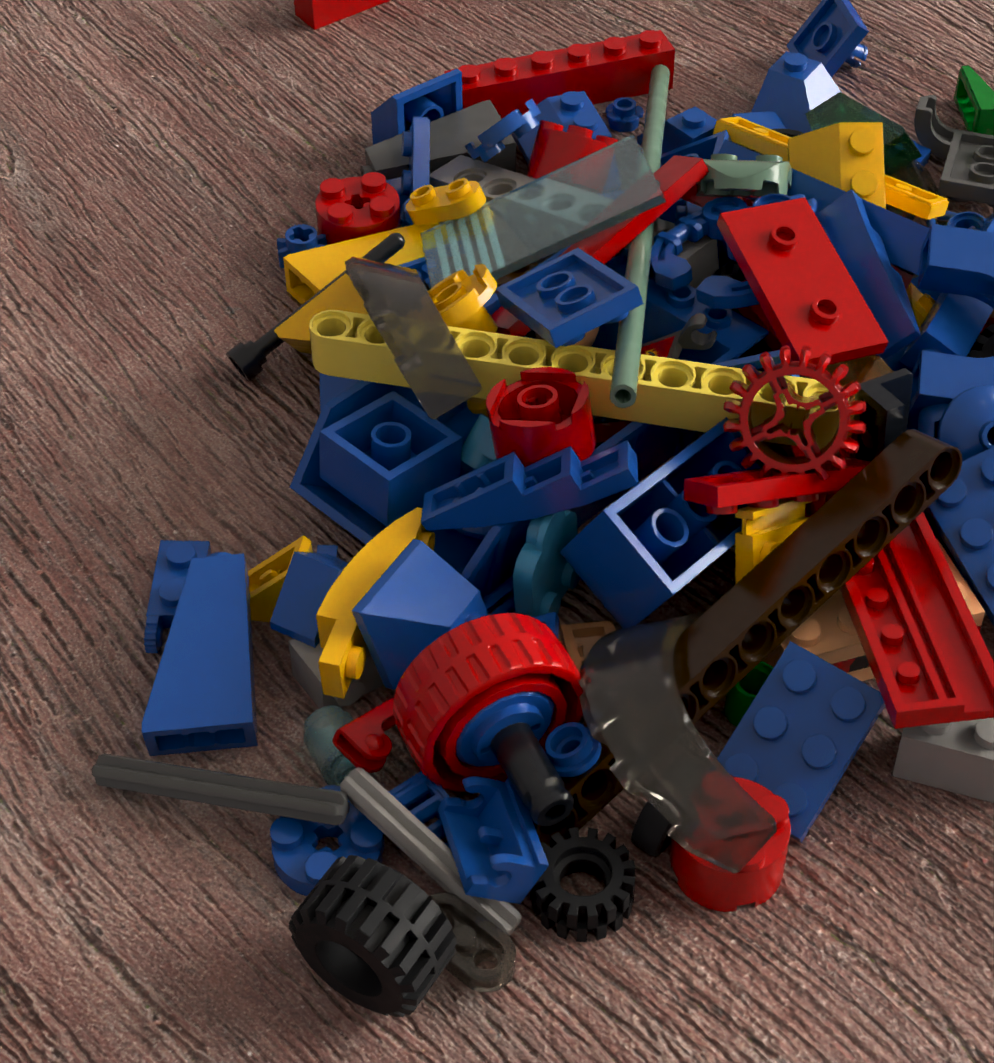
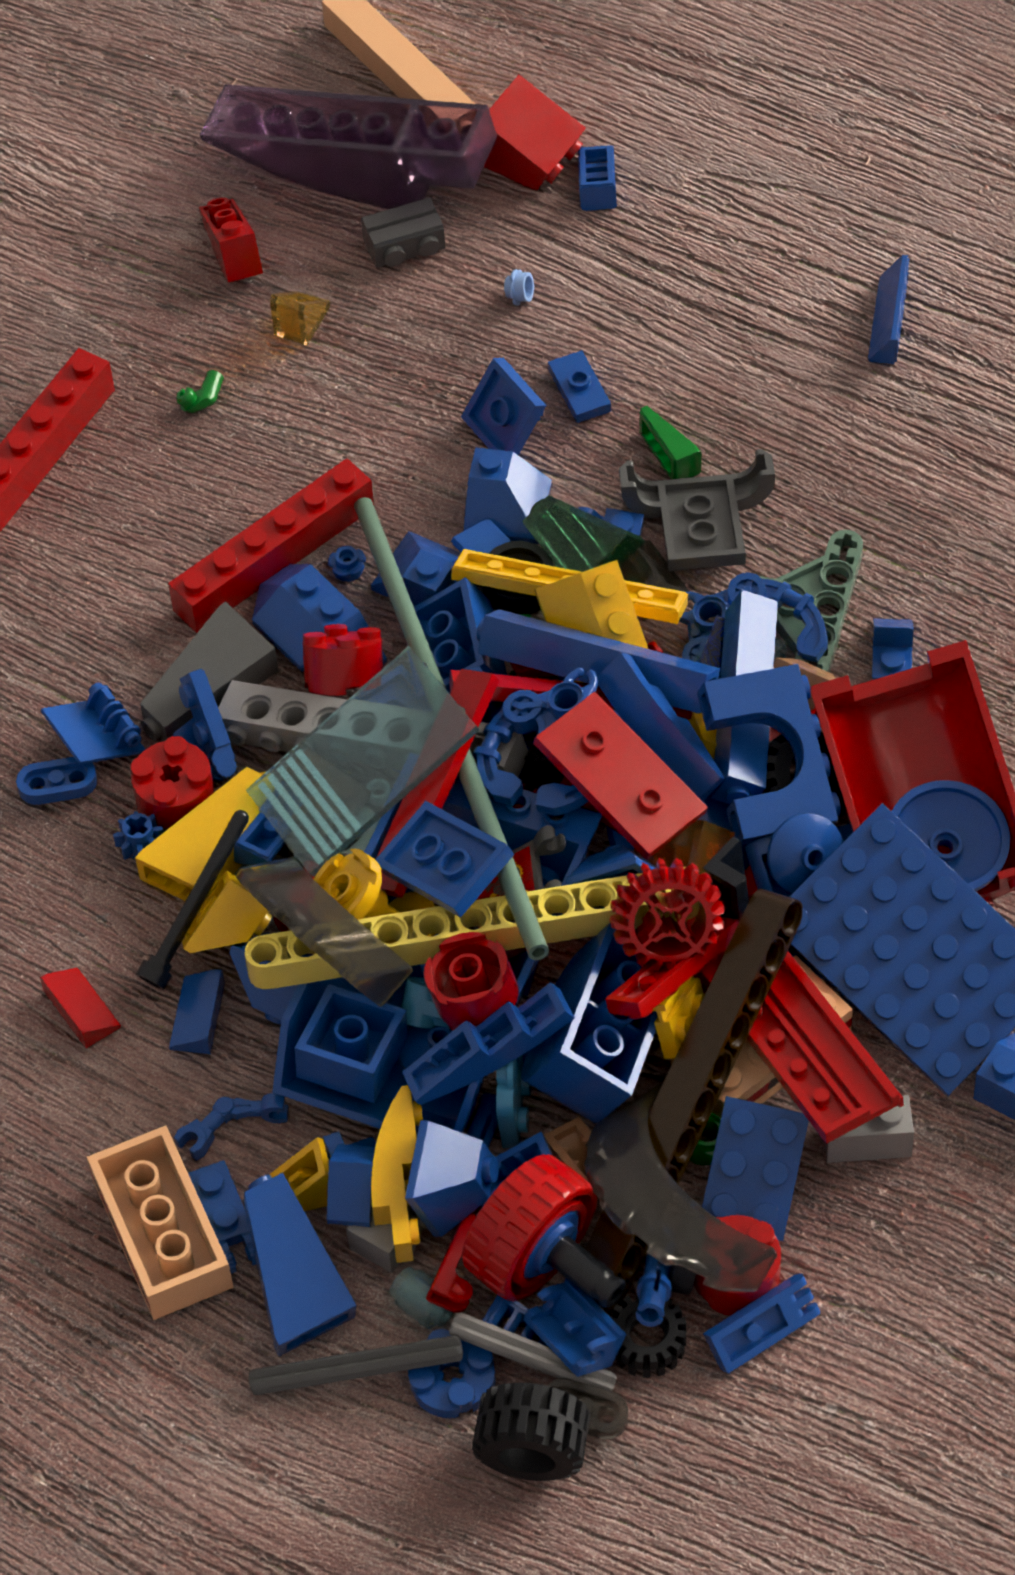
camera: 20 degrees left, 10 degrees up
(97, 572) = (160, 1222): none -> light nougat brick
(159, 367) = (79, 1005): none -> red slope
(200, 513) = (270, 1108): none -> blue piece
(257, 192) = (57, 779): none -> blue plate
(270, 409) = (198, 1012): none -> blue slope
(311, 161) = (95, 727): none -> blue hinge
(430, 99) = (162, 642): blue slope -> none
(445, 202) = (257, 753): yellow plate -> none
(512, 123) = (271, 653): blue plate -> none
(572, 749) = (599, 1235): blue plate -> none
(607, 828) = (653, 1302): none -> blue pin
(731, 923) = (761, 1323): none -> blue hinge
(745, 177) = (526, 667): sand green slope -> none
(910, 52) = (579, 386): none -> blue plate

